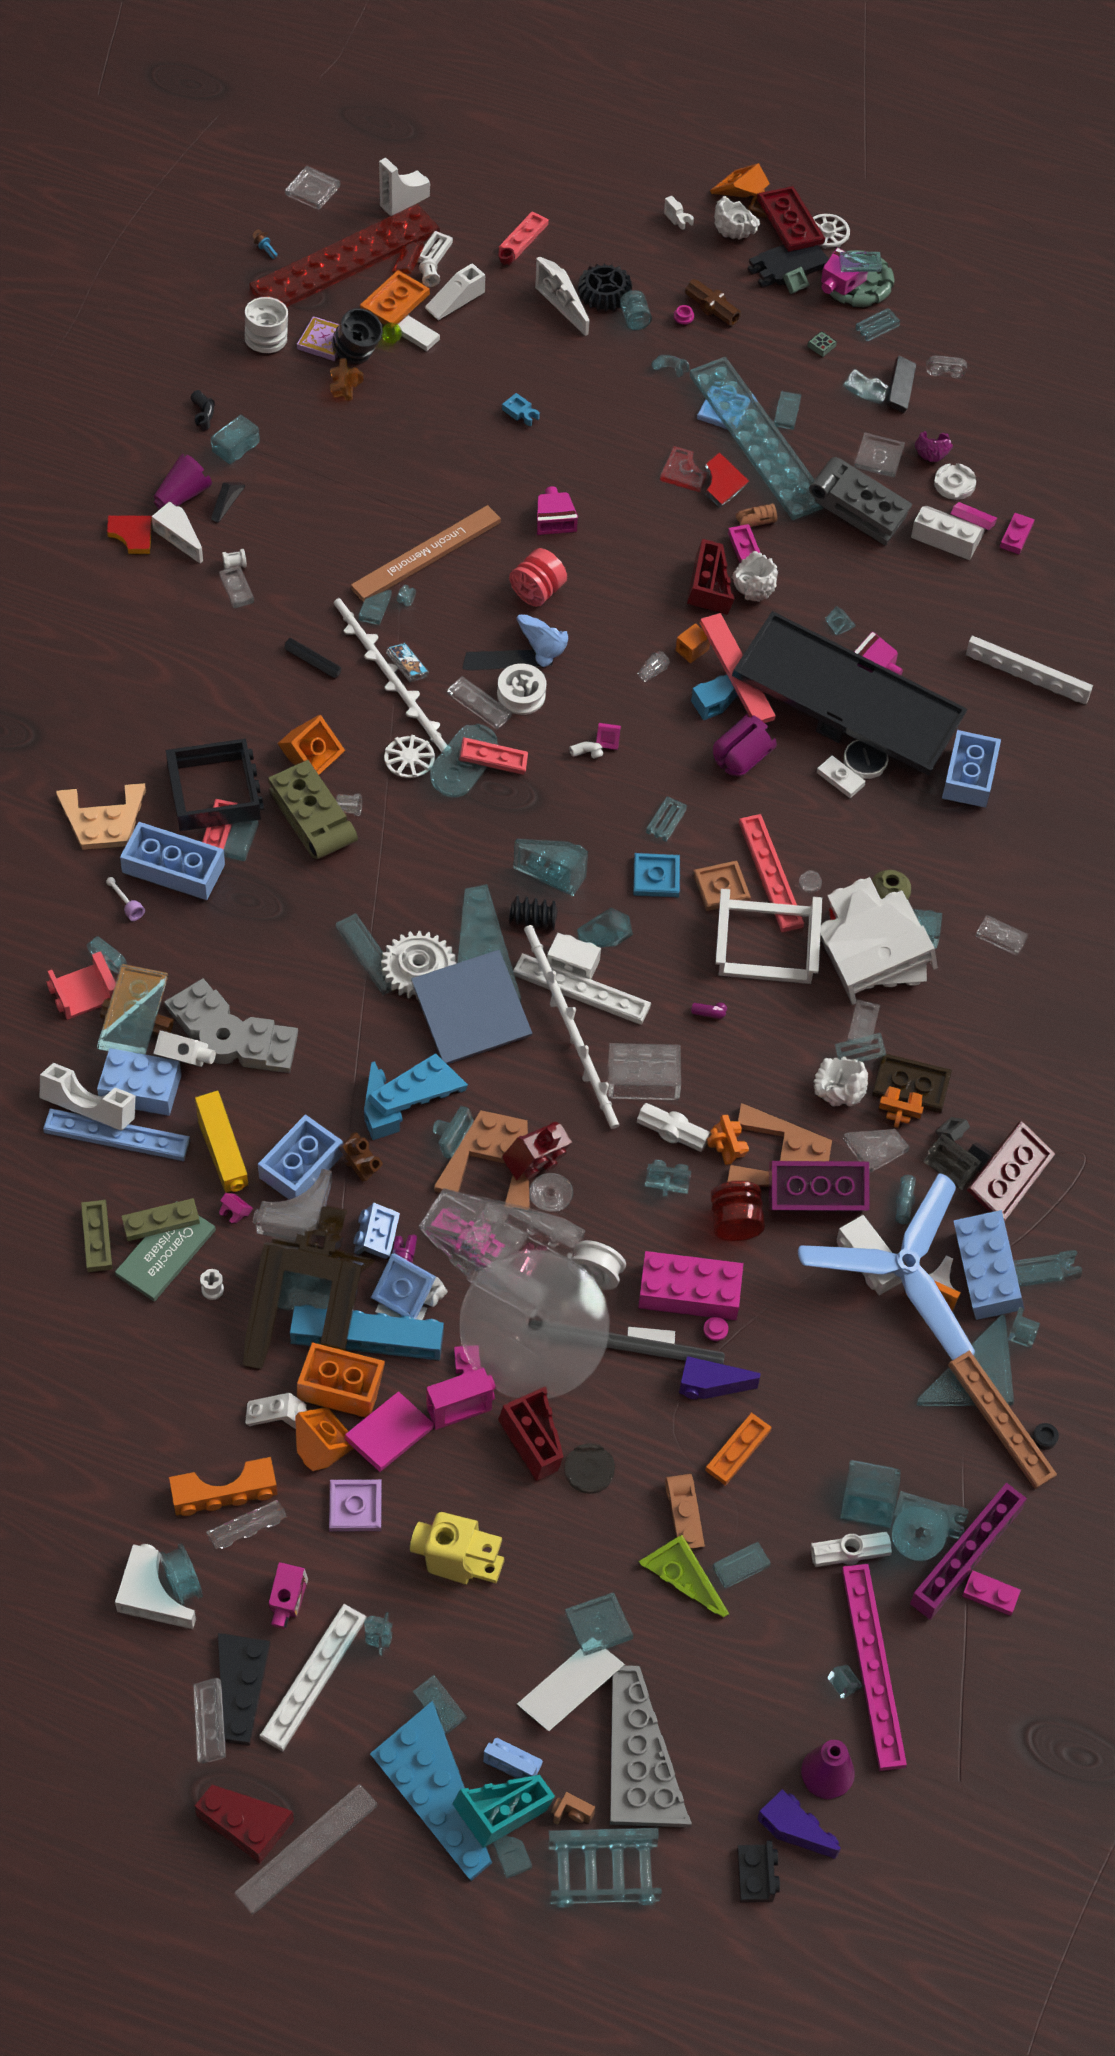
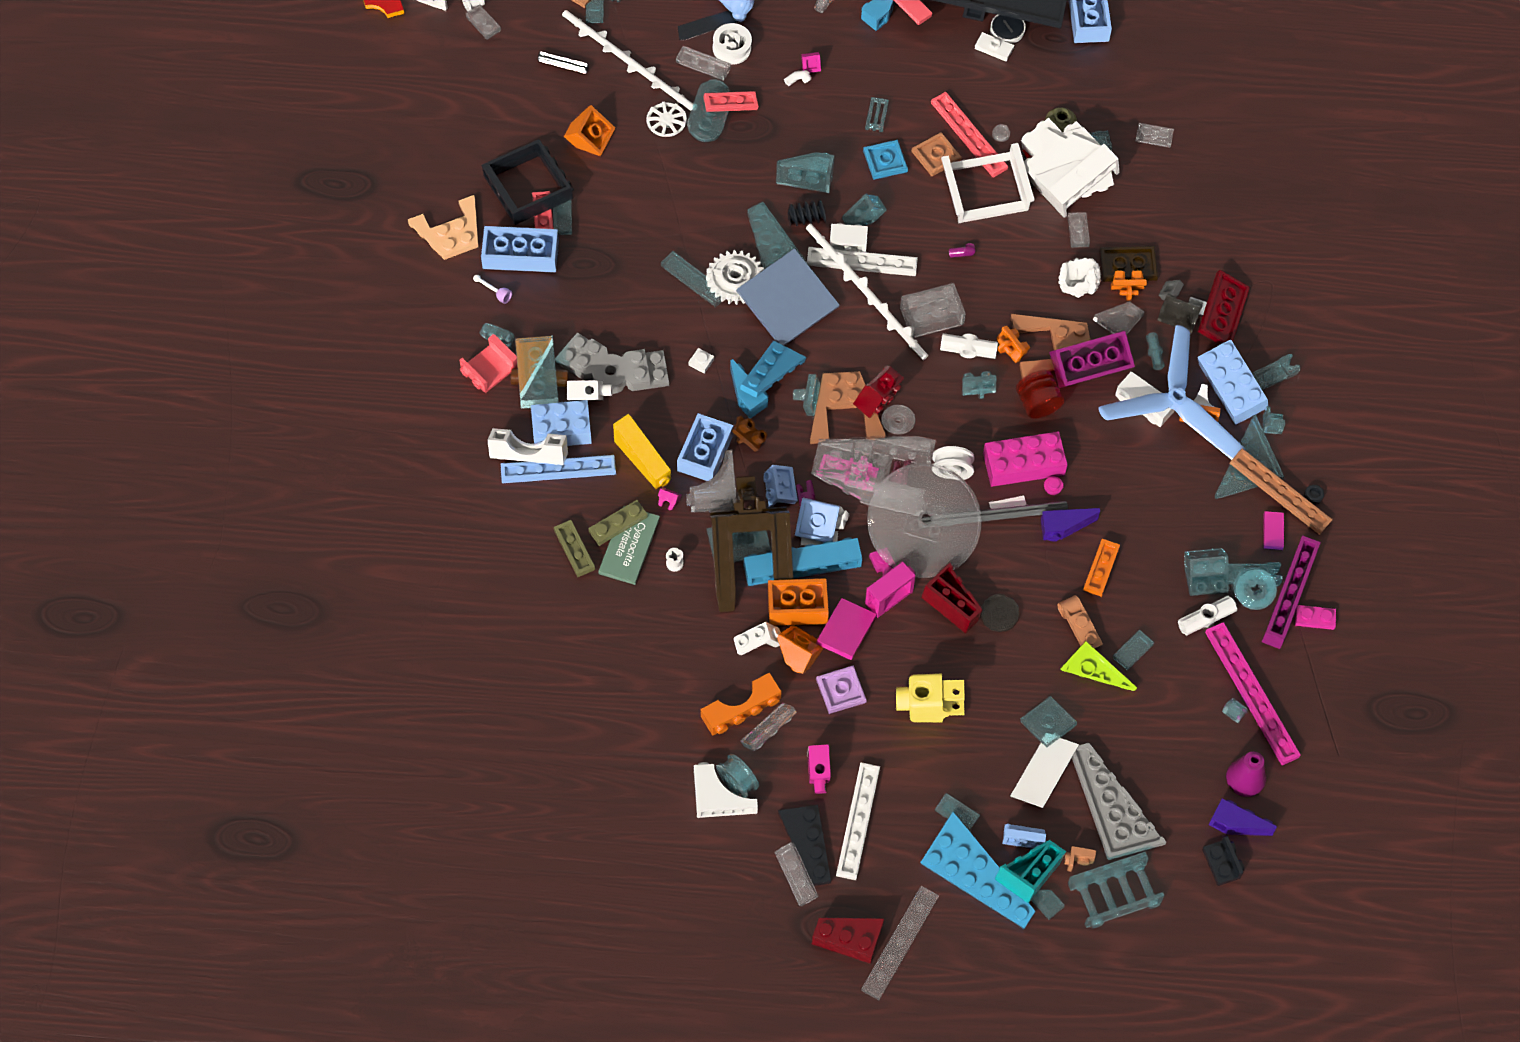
camera: 15 degrees left, 5 degrees up
(311, 810) = (610, 181): olive hinge -> none
(340, 1053) = (701, 360): none -> white plate
(350, 803) = (635, 168): clear bush -> none
(378, 1632) = (895, 774): clear light blue hinge -> none
(407, 662) = (637, 46): tile -> none
(743, 746) = (916, 43): magenta cylinder -> none
(859, 1050) = (1101, 247): clear light blue tile -> none
(976, 1466) = (1273, 530): none -> dark pink tile

